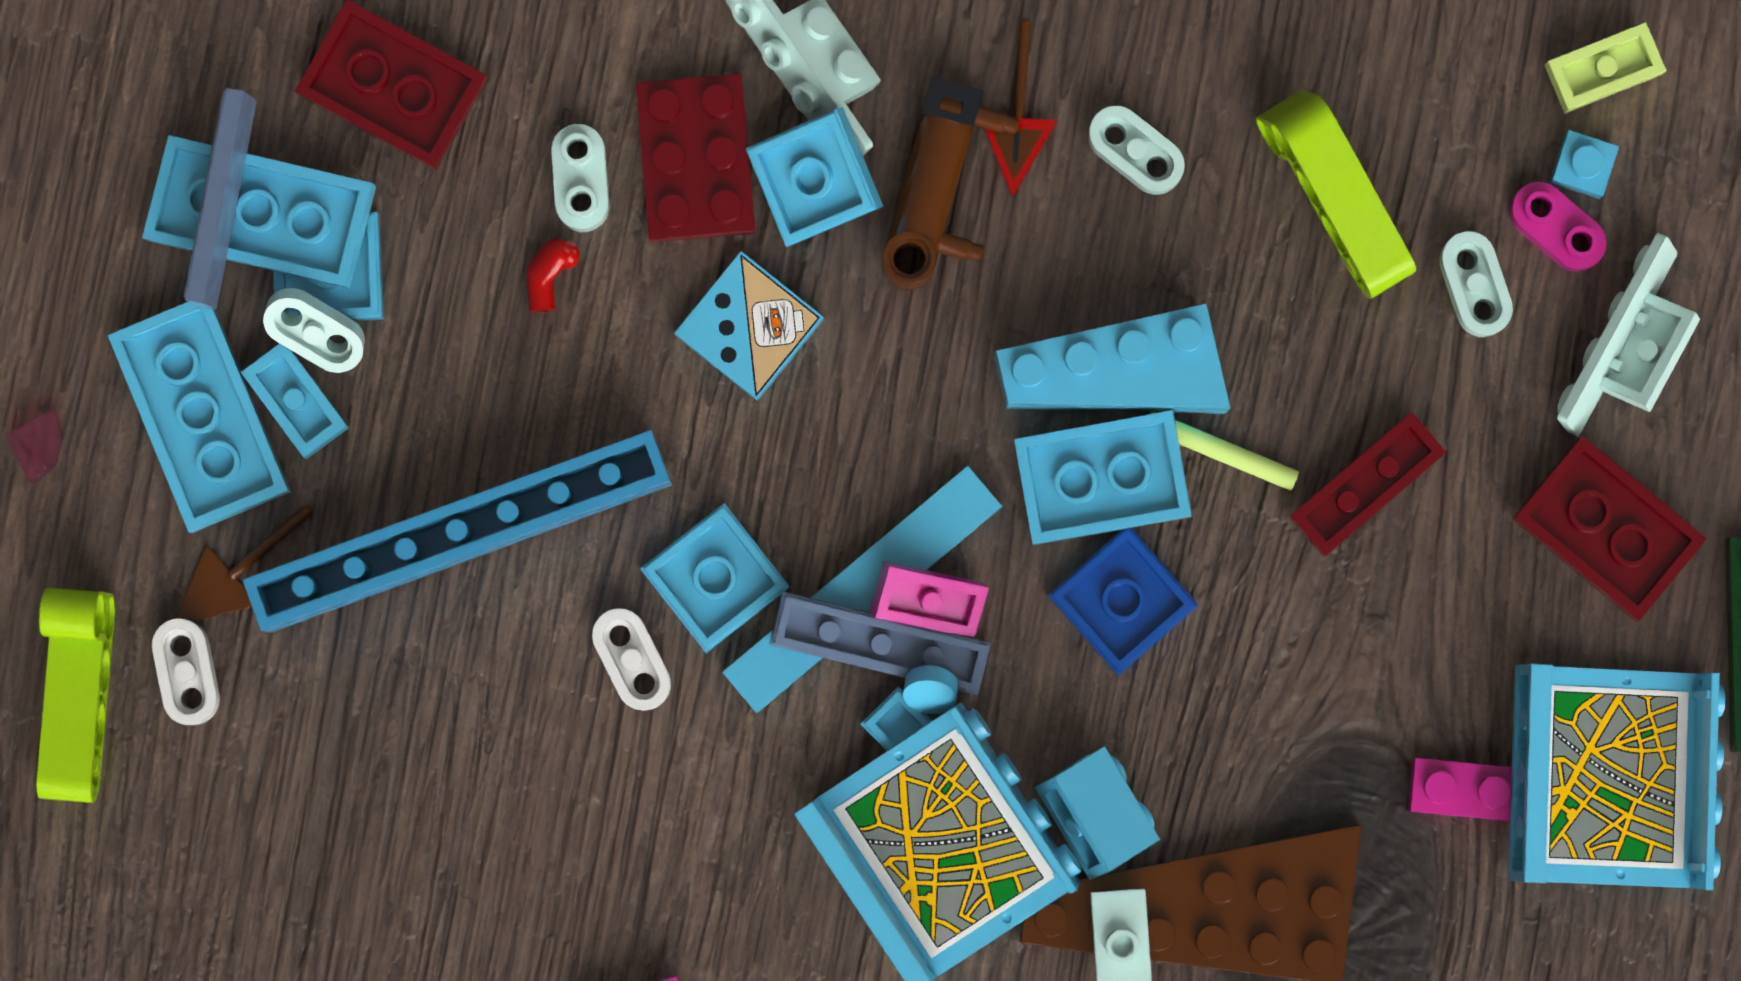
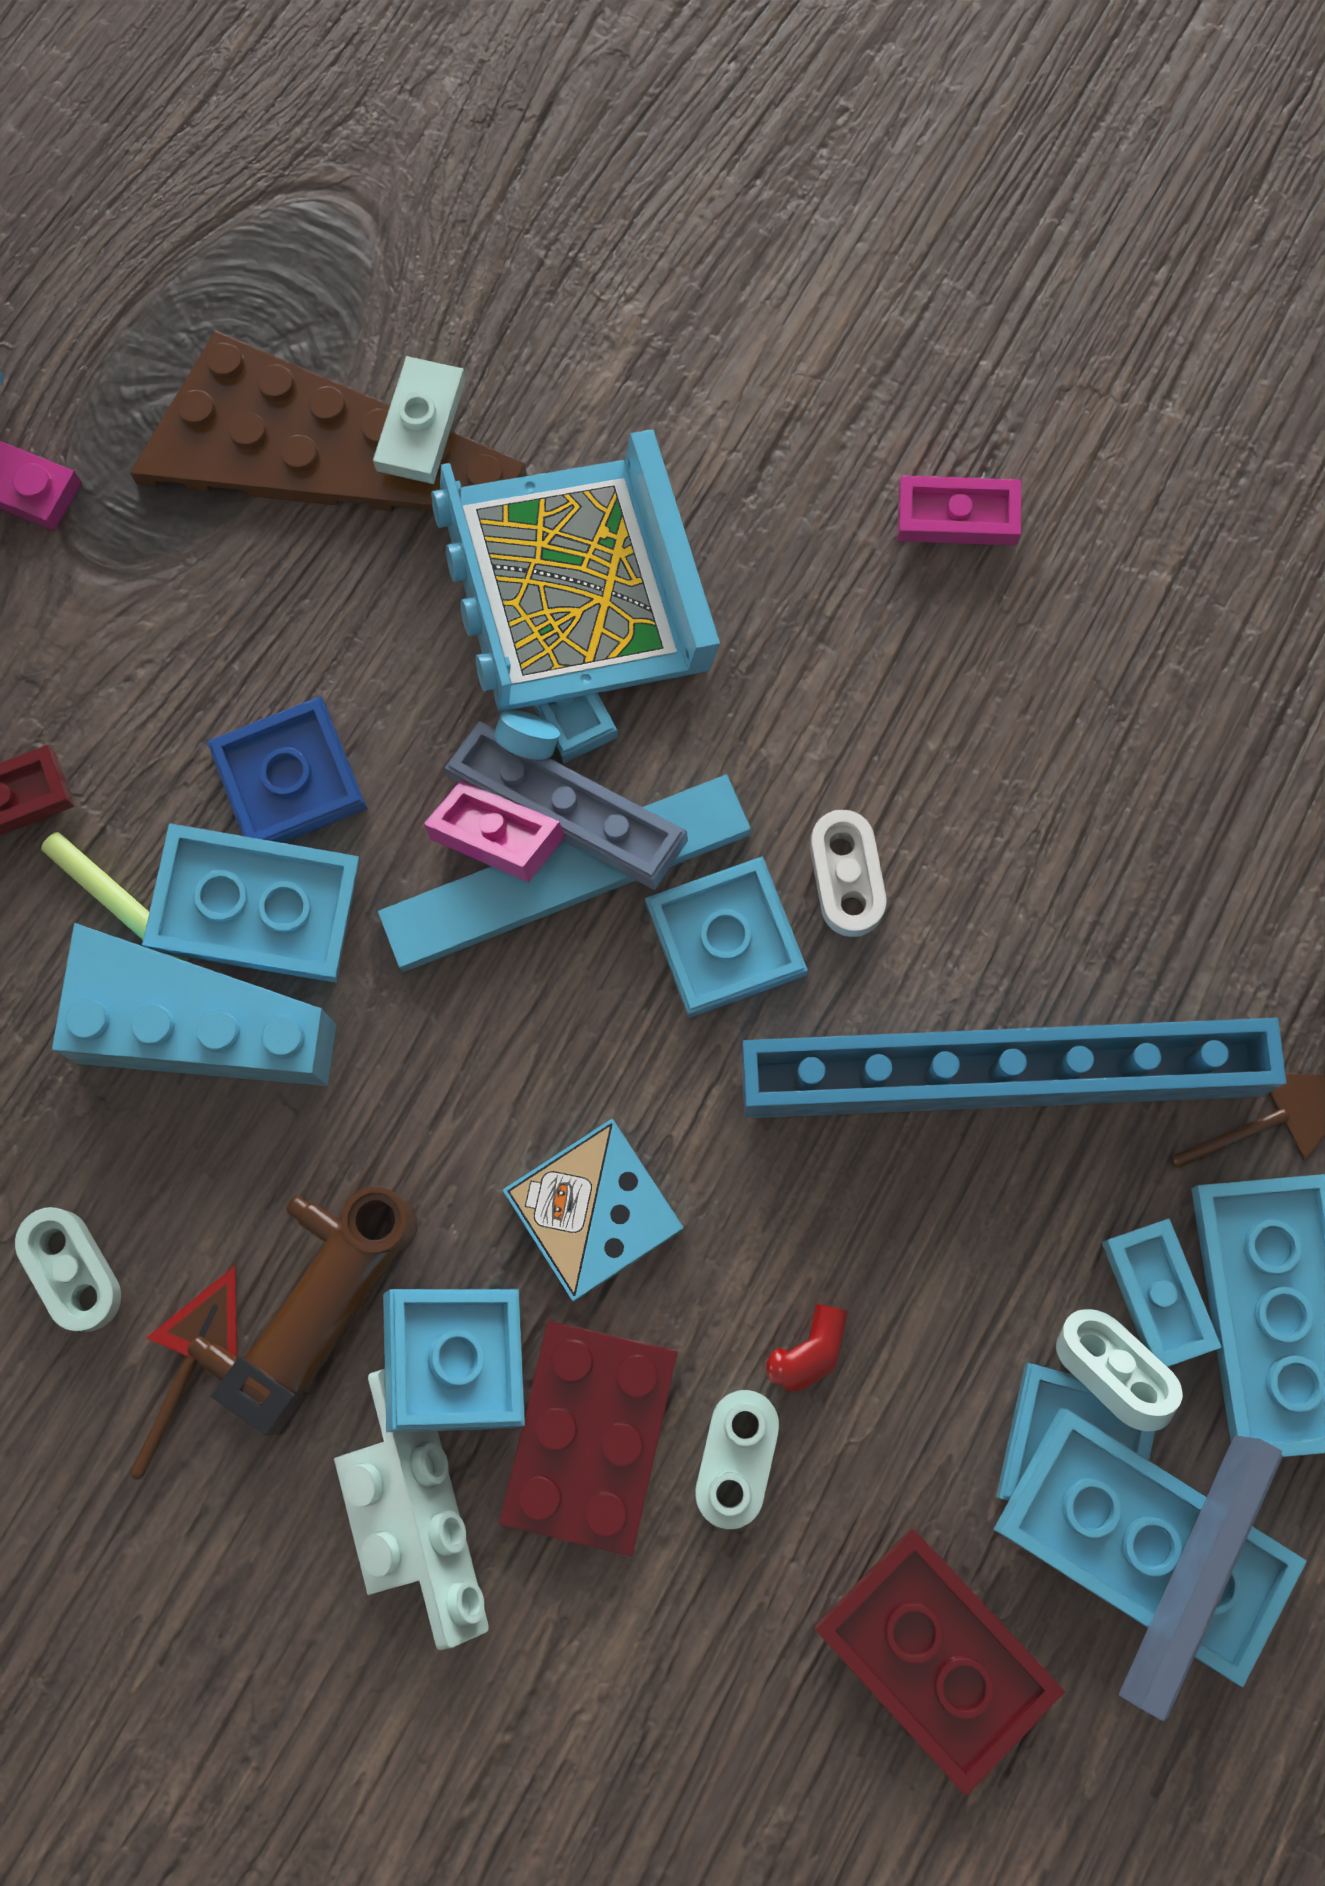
camera: 155 degrees left, 10 degrees down
(1098, 812) = (394, 556): medium azure brick -> none

